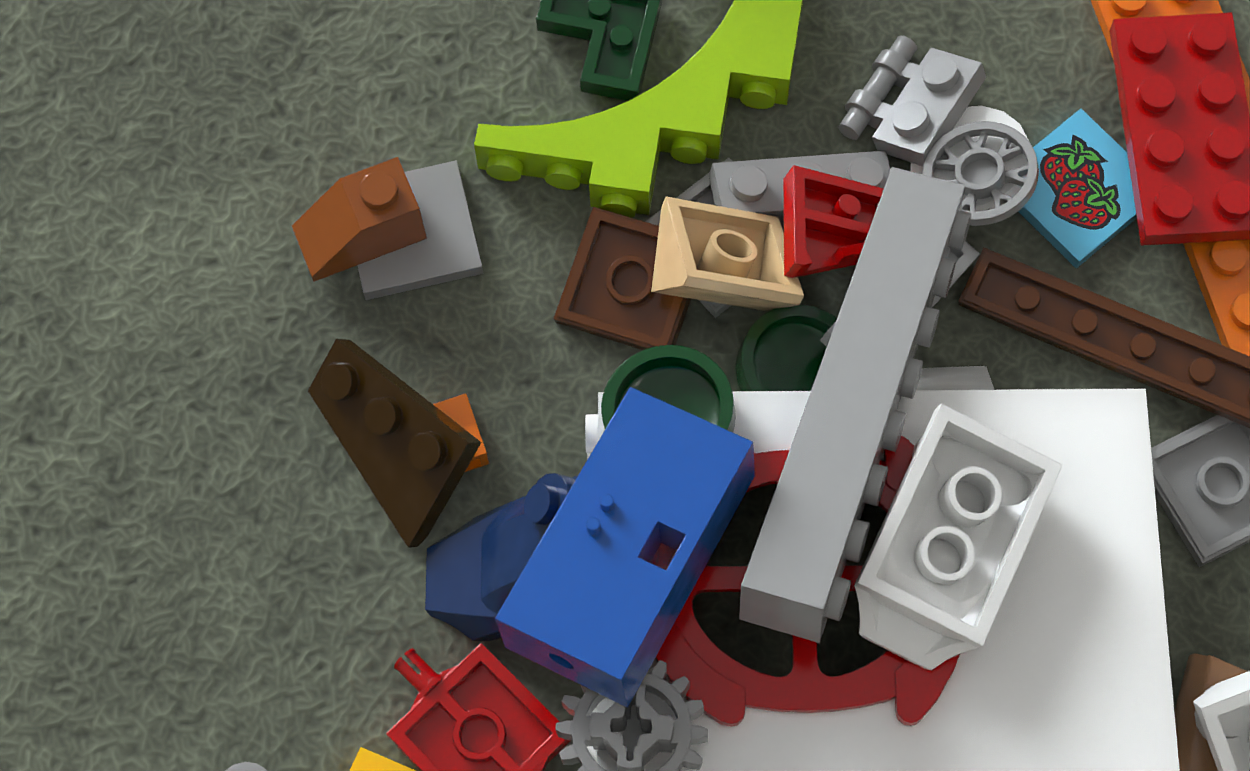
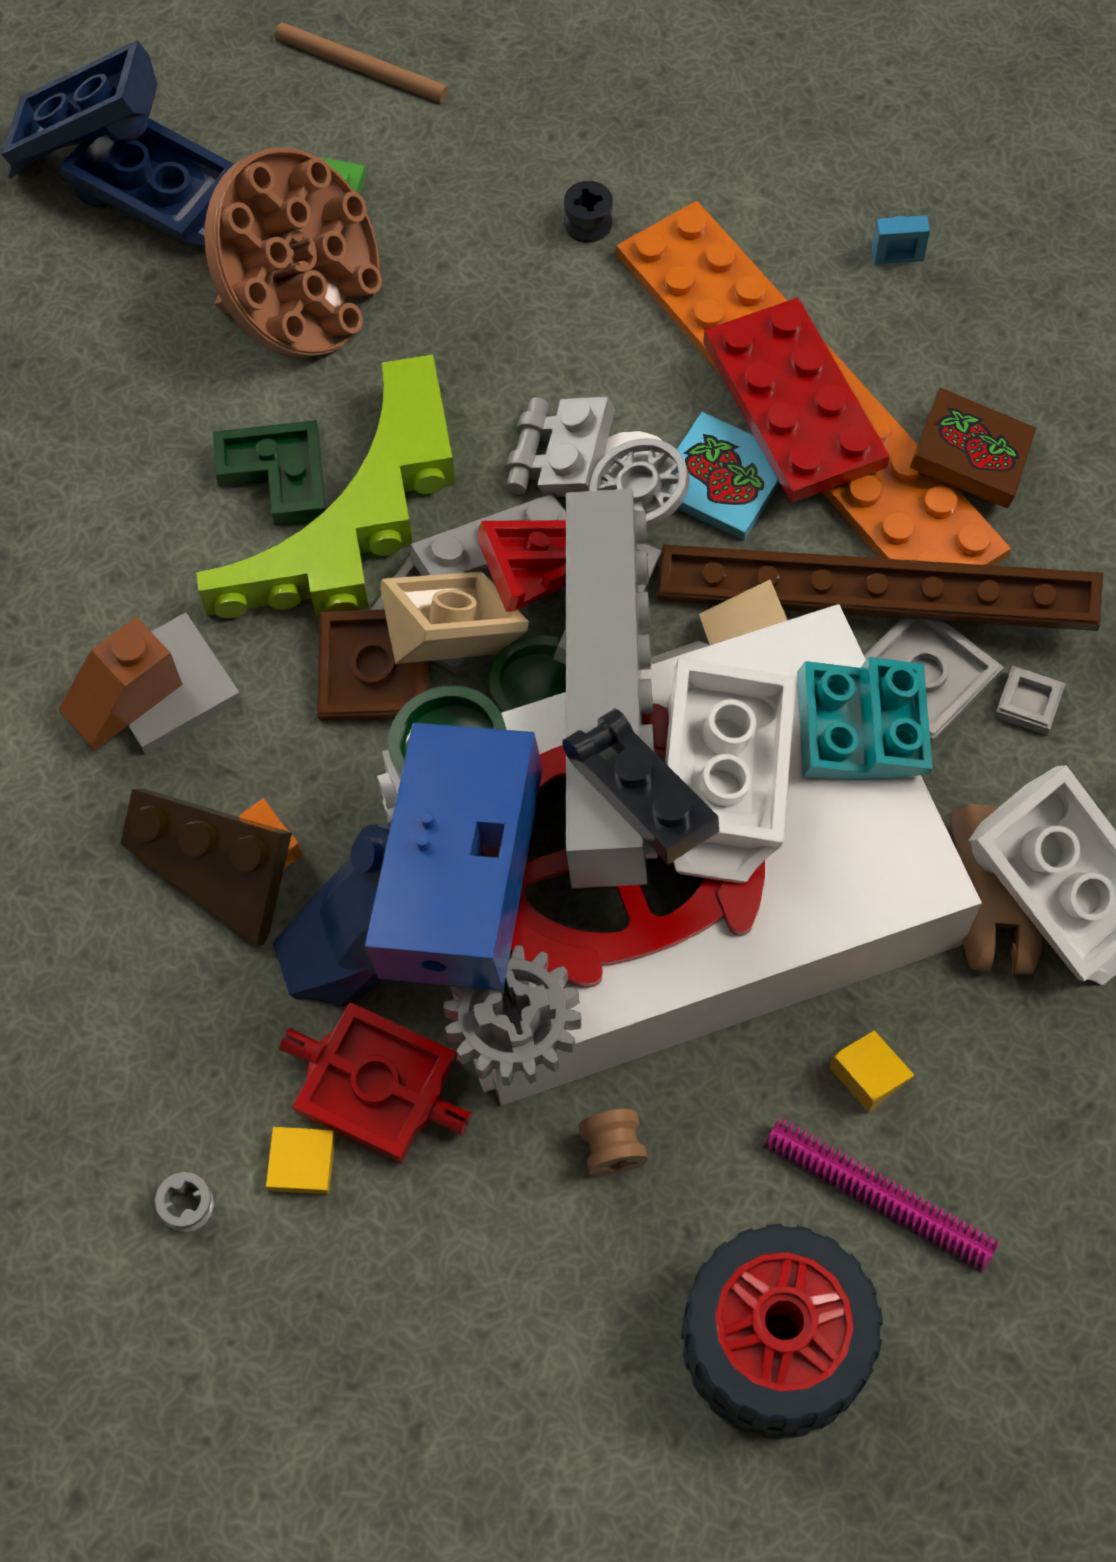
camera: 20 degrees left, 5 degrees down
(846, 543) = (641, 787): none -> black plate
(1041, 360) = (743, 614): none -> tan sticker
(1124, 532) = (864, 720): none -> teal slope

